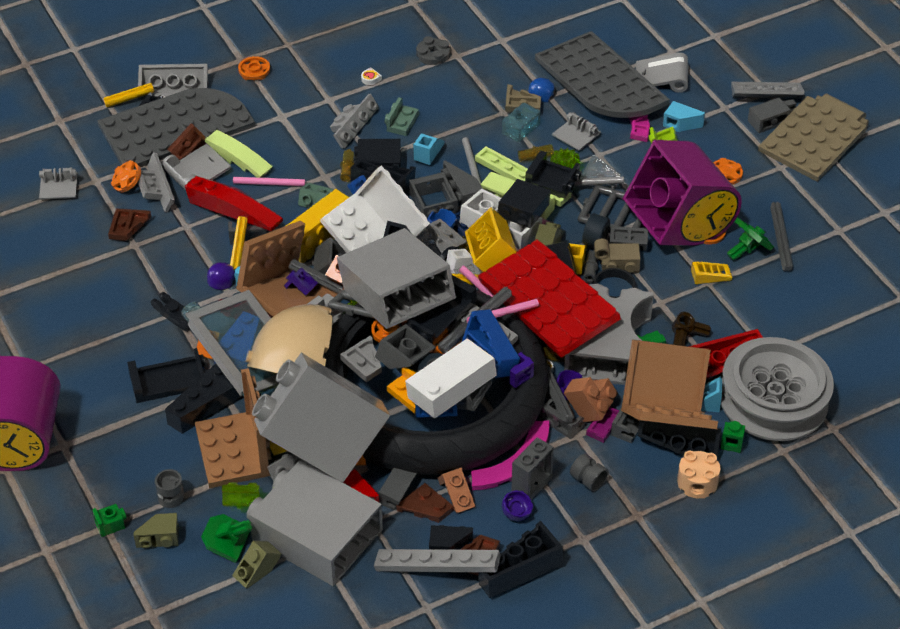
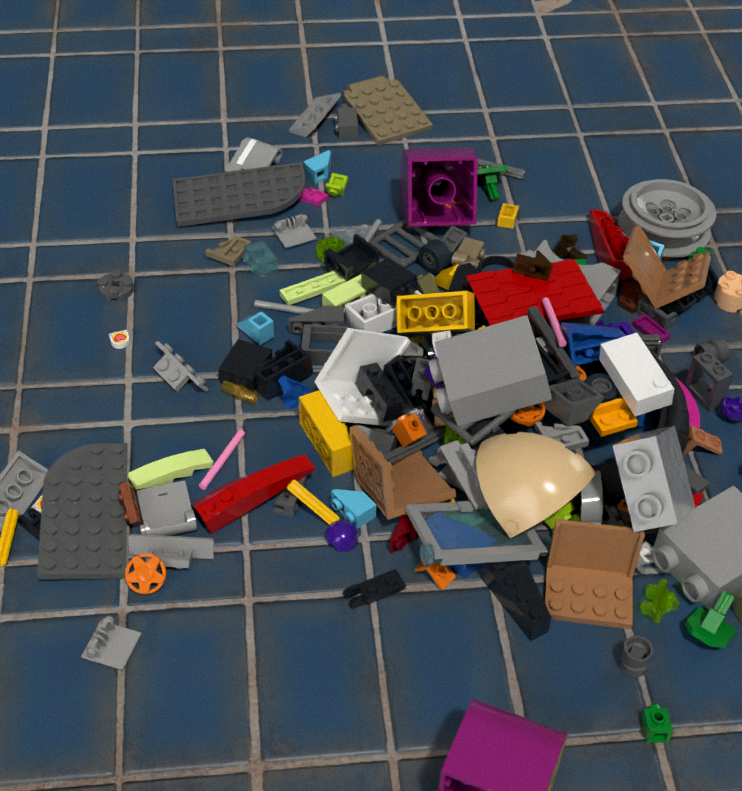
camera: 70 degrees left, 0 degrees up
(127, 222) = (217, 595): copper wing -> none
(158, 531) = (686, 683): olive slope -> none
(165, 378) = (469, 619): black panel -> none
(254, 69) = (40, 423): orange wheel -> none
(301, 280) = (401, 467): dark purple bracket -> none
(311, 194) = (273, 425): sand green bracket -> none
(368, 232) = (387, 400): none -> black arch
(400, 118) = (197, 335): sand green bracket -> none
(426, 504) = (709, 467): copper wing -> none
(531, 153) = (304, 265): clear yellow axle -> none
(542, 87) = (221, 233): blue hair -> none
(575, 279) = (535, 267): none -> dark brown slope
(591, 397) = (636, 316): nougat brick -> none
(729, 169) = (392, 168): orange wheel -> none

